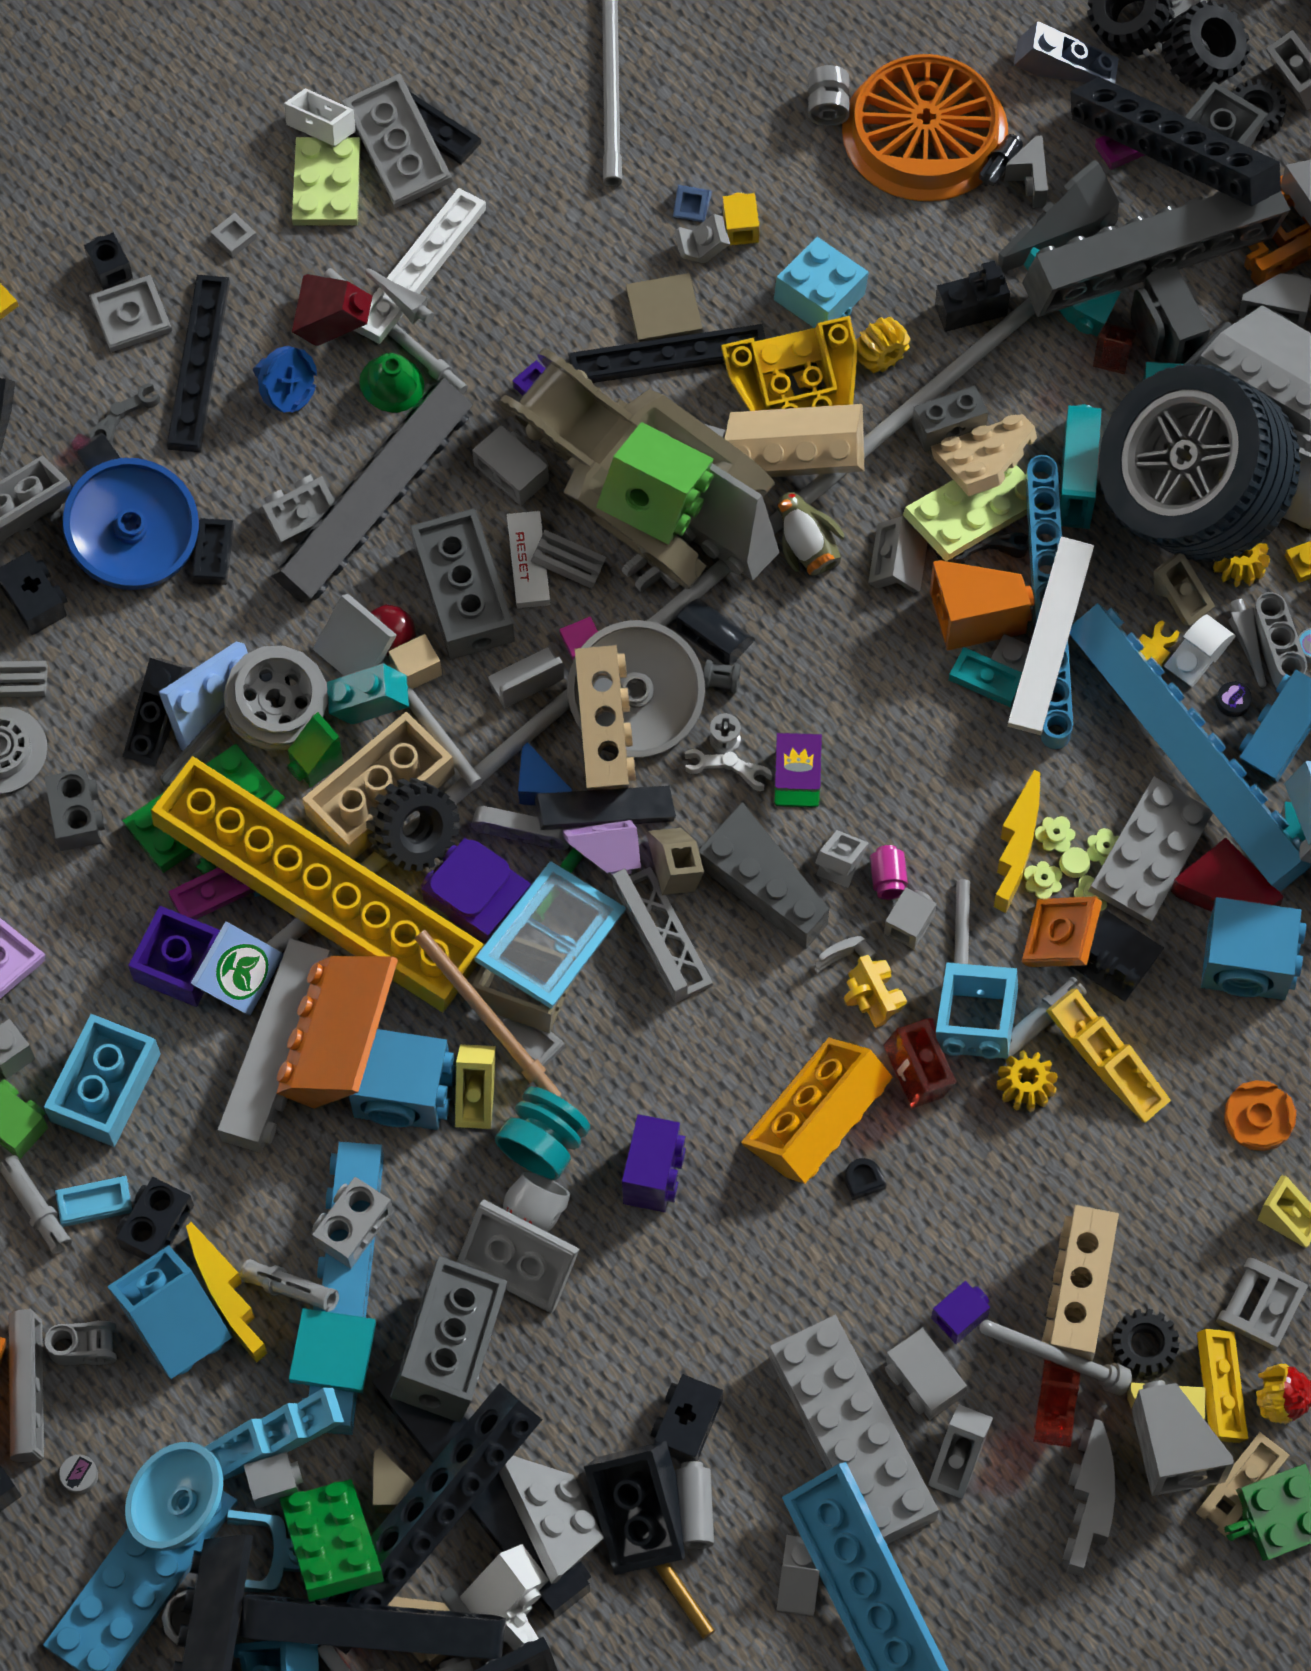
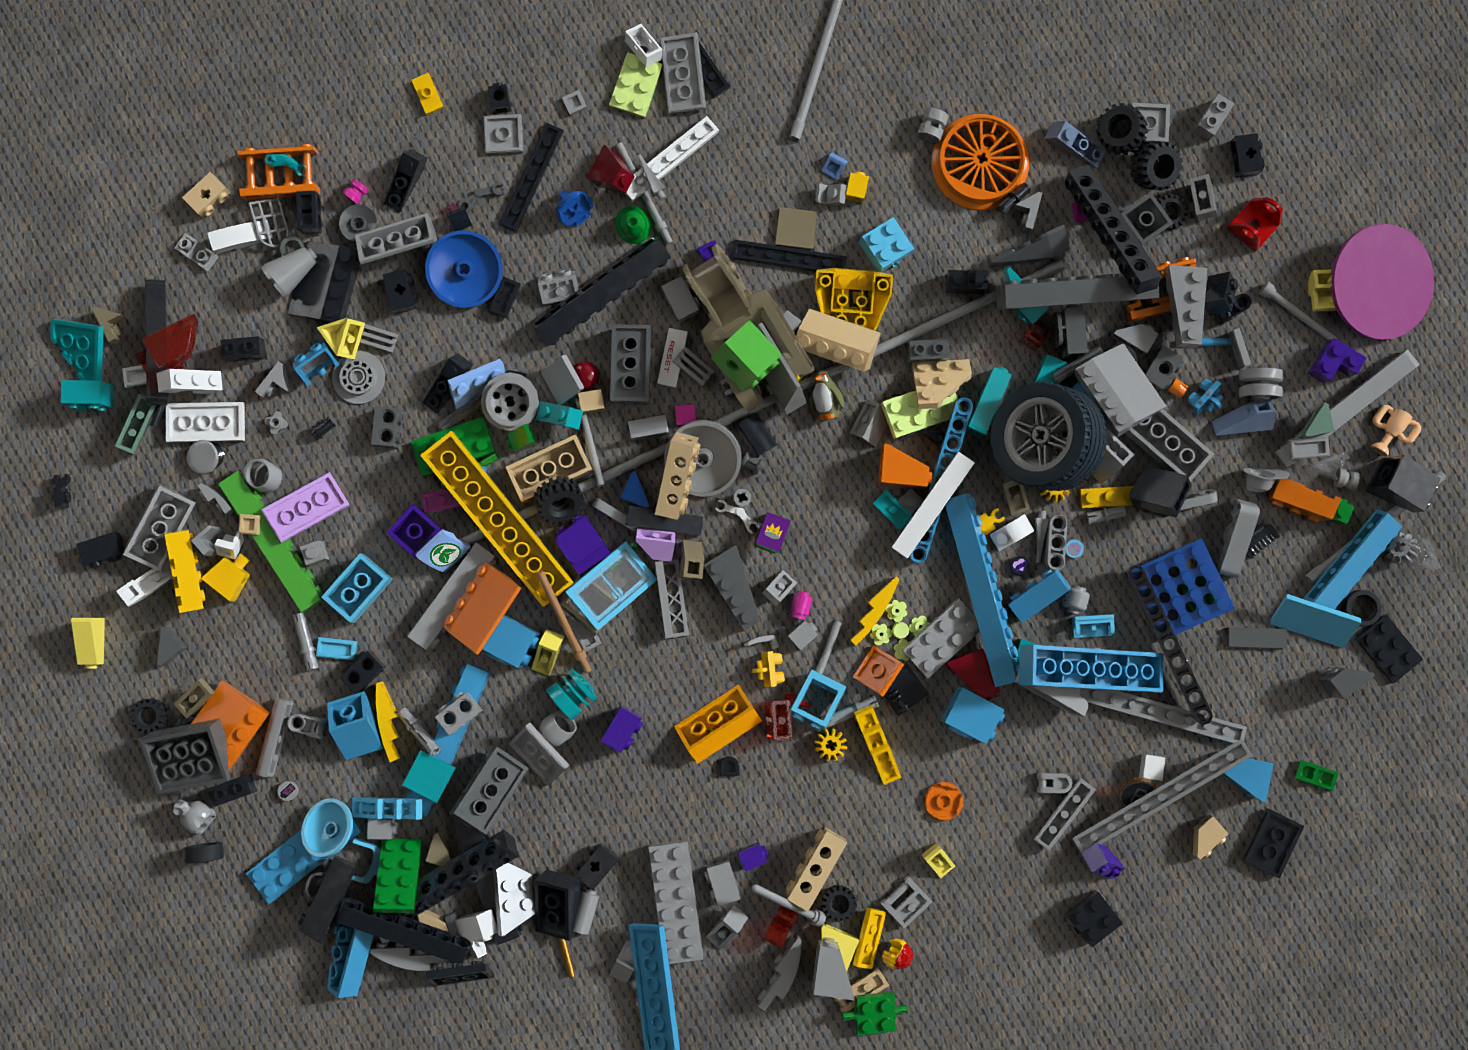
camera: 15 degrees right, 20 degrees up
(882, 344) = (906, 294): yellow gear -> none

